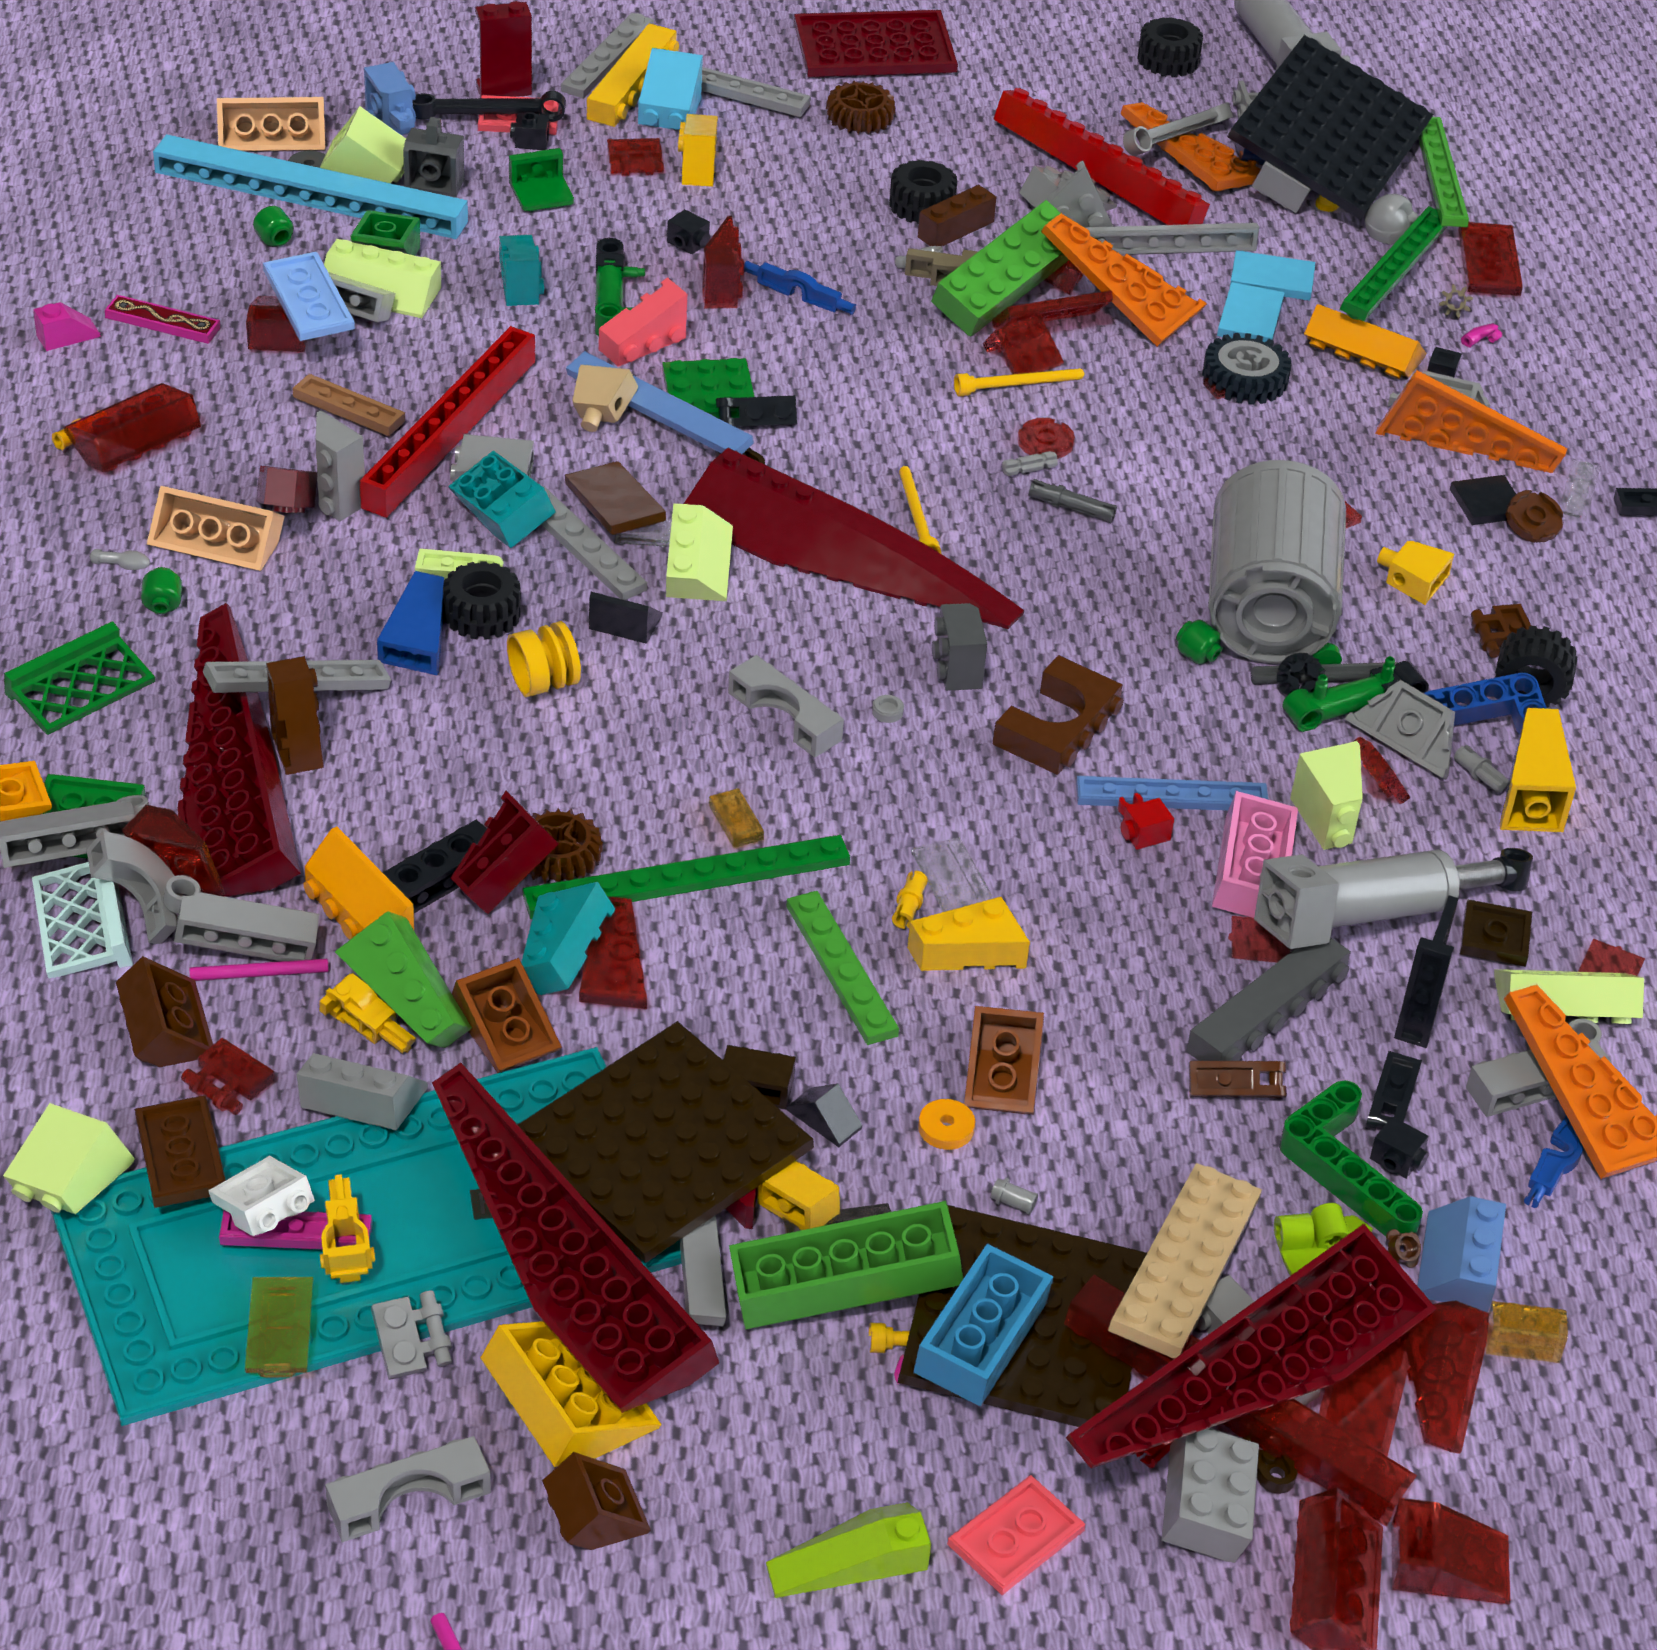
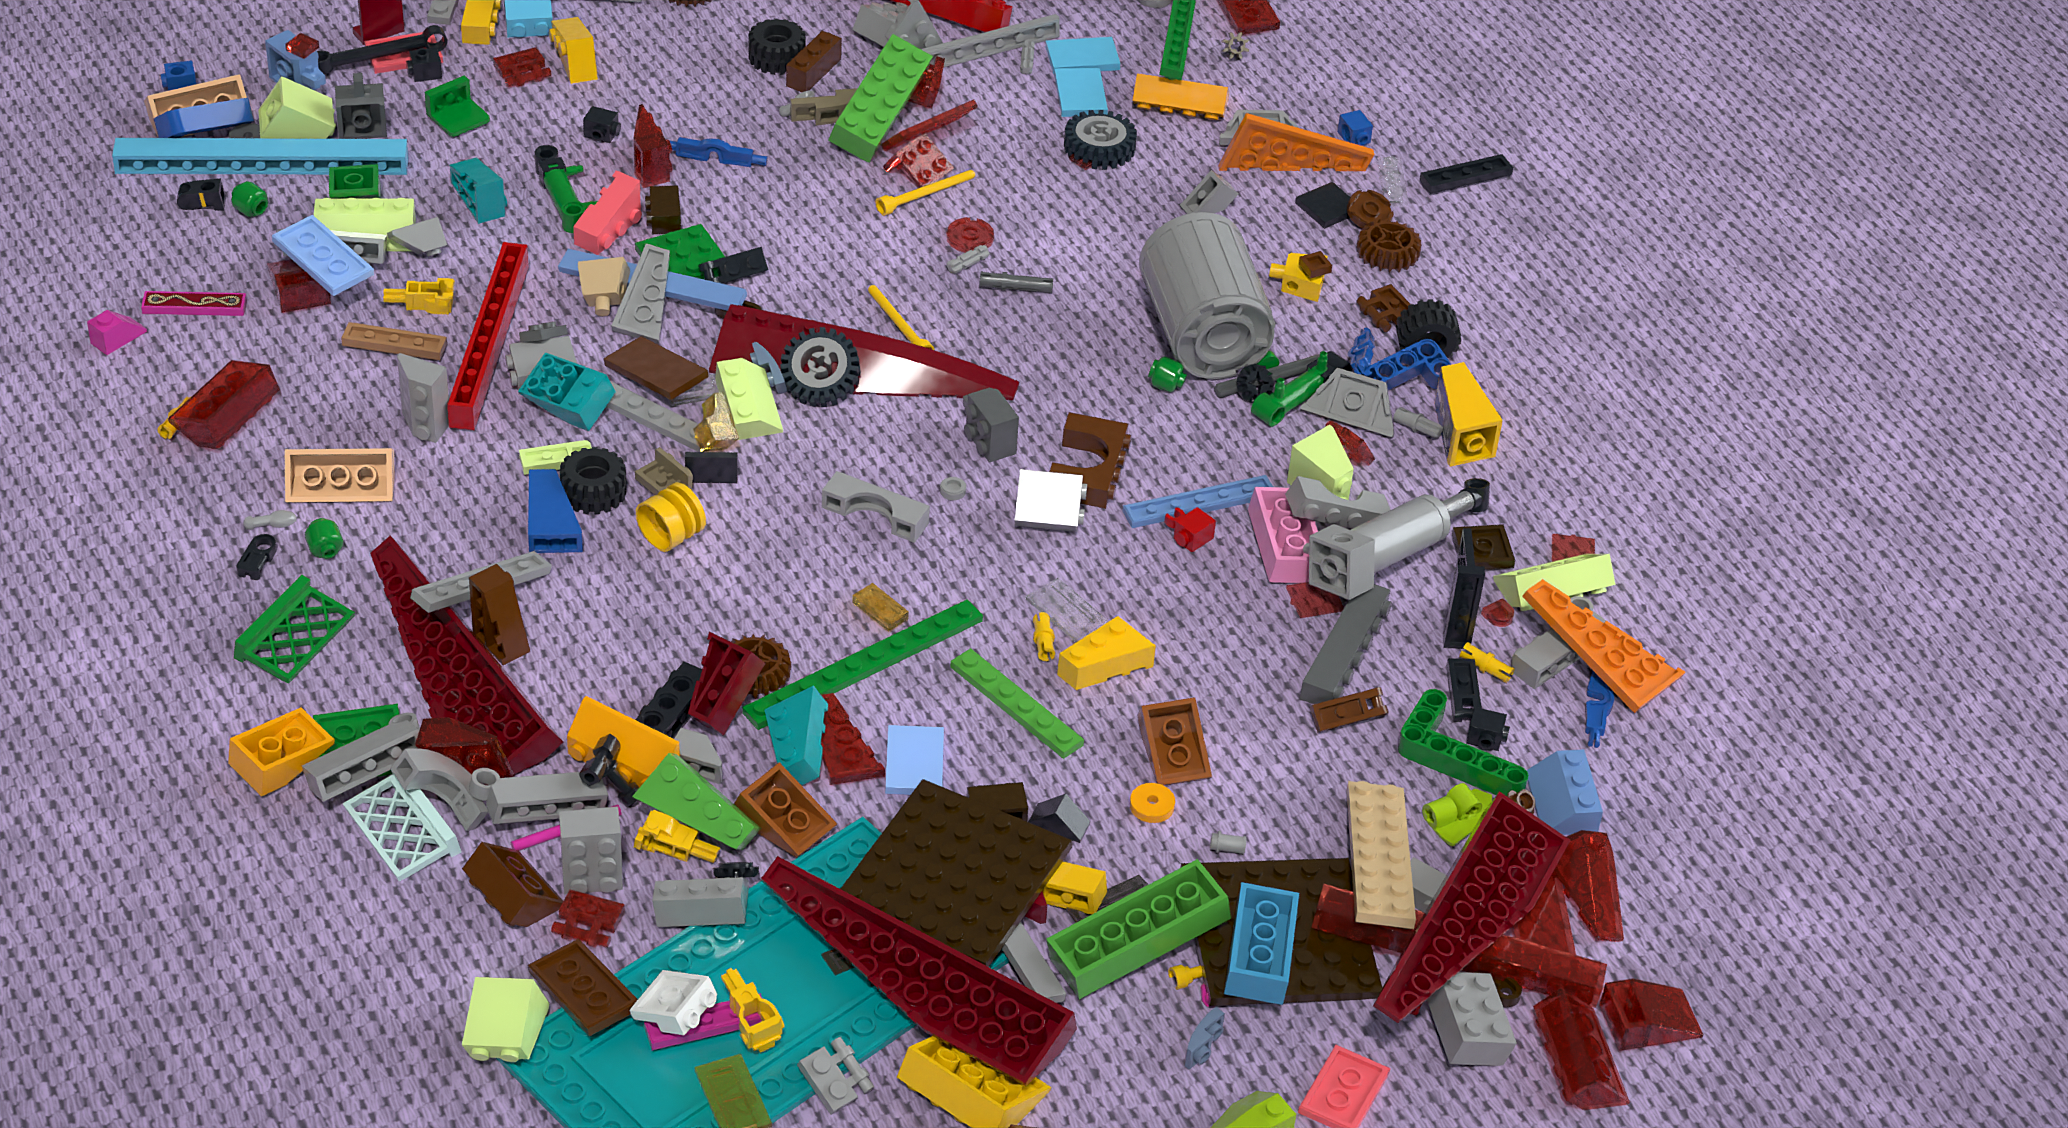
camera: 20 degrees left, 0 degrees up
(81, 594) = (254, 558): none -> black piece
(228, 210) = (202, 194): none -> black leg
(257, 998) = (591, 850): none -> light grey brick
(268, 85) = (178, 75): none -> blue brick
(268, 134) = (203, 118): none -> beam
(287, 489) = (382, 426): wedge -> none
(322, 908) = (604, 765): none -> black bar
(397, 80) = (302, 45): none -> clear red tile
(410, 367) = (427, 296): none -> yellow piece
(416, 1067) = (735, 870): none -> black gear
(430, 303) = (420, 237): none -> light grey slope
(439, 927) = (700, 754): none -> light grey slope
(516, 430) = (543, 331): none -> dark grey plate
(567, 609) = (663, 472): none -> dark tan bracket
(638, 421) = (644, 299): none -> light grey wing
(645, 579) = (717, 427): none -> clear yellow arch
(693, 995) = (912, 756): none -> light blue tile
(711, 333) = (663, 209): none -> dark brown brick
(741, 532) = (763, 359): none -> sand blue slope
(784, 556) = (824, 350): none -> wheel
(859, 1425) = (1200, 1042): none -> sand blue slope
(986, 747) = (1050, 500): none -> brick
(1136, 289) = (996, 98): orange wing -> none
(1206, 264) = (1027, 57): none -> light grey axle
(1298, 825) = (1314, 502): none -> light grey arch
(1347, 457) = (1210, 195): none -> light grey slope
(1431, 559) = (1315, 264): none -> reddish brown plate
(1438, 1069) = (1487, 662): none -> yellow pin
(1444, 362) = (1247, 98): black plate -> none
(1446, 670) = (1362, 351): none -> blue piece
(1478, 333) = (1269, 64): dark pink arm -> none
(1481, 1015) = (1498, 613): none -> clear red tile
(1526, 1332) = (1636, 838): clear yellow brick -> none
(1539, 560) = (1389, 245): none -> reddish brown gear
(1559, 421) = (1355, 128): none -> blue brick

